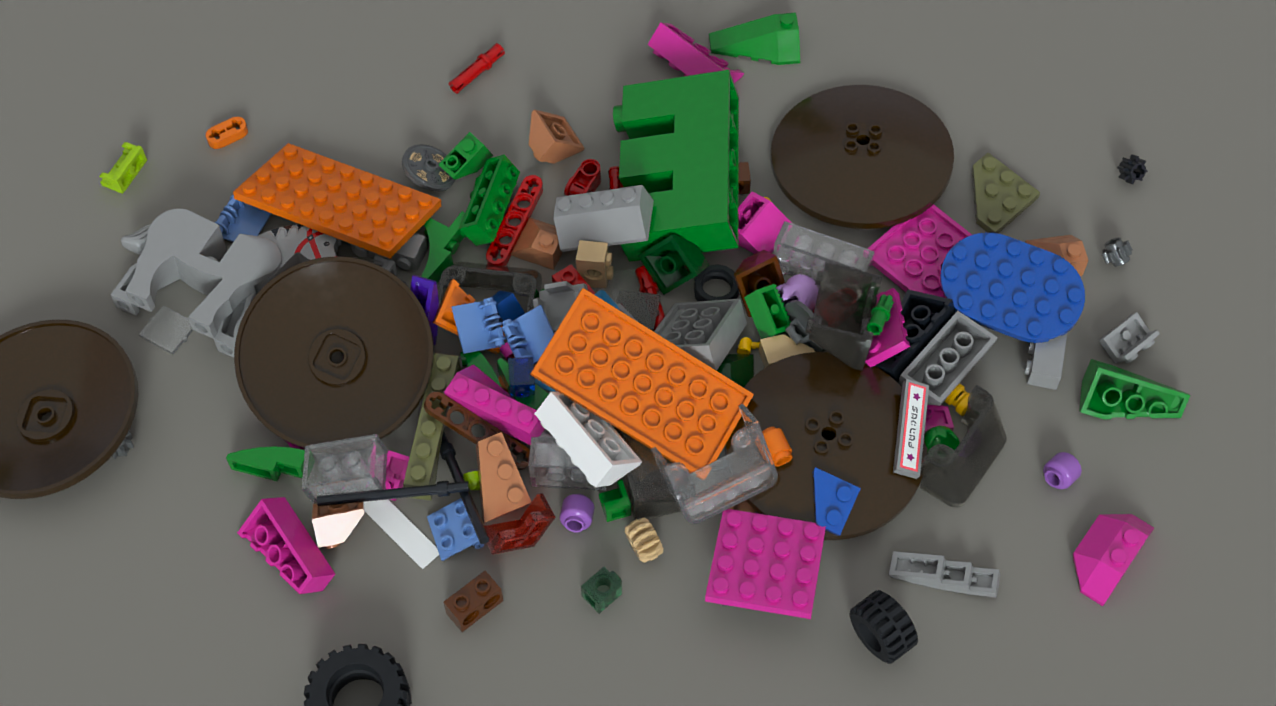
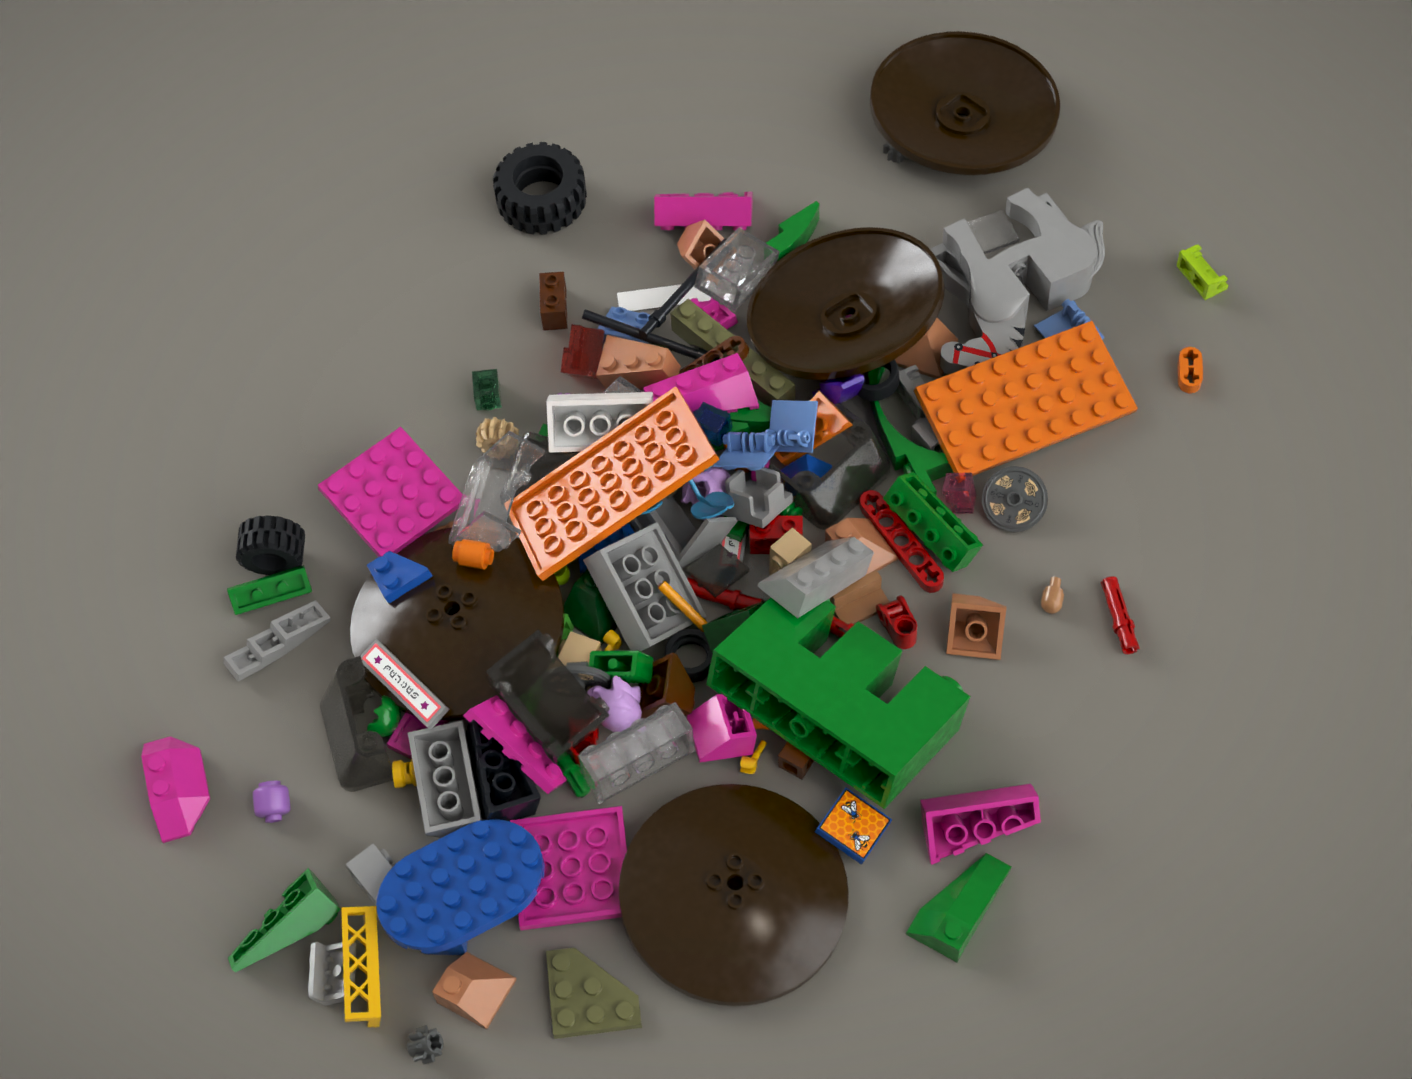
camera: 130 degrees right, 0 degrees up
(452, 201) = (960, 492): none -> clear pink brick
(466, 157) = (1003, 536): green slope -> none
(491, 111) = (1052, 596): none -> medium nougat cylinder
(687, 301) = (682, 605): none -> light orange bar
(759, 120) = (853, 825): none -> tile
(880, 314) = (523, 731): green axle -> none
(923, 619) = (269, 590): none -> green plate
(1109, 314) = (370, 968): none -> yellow fence

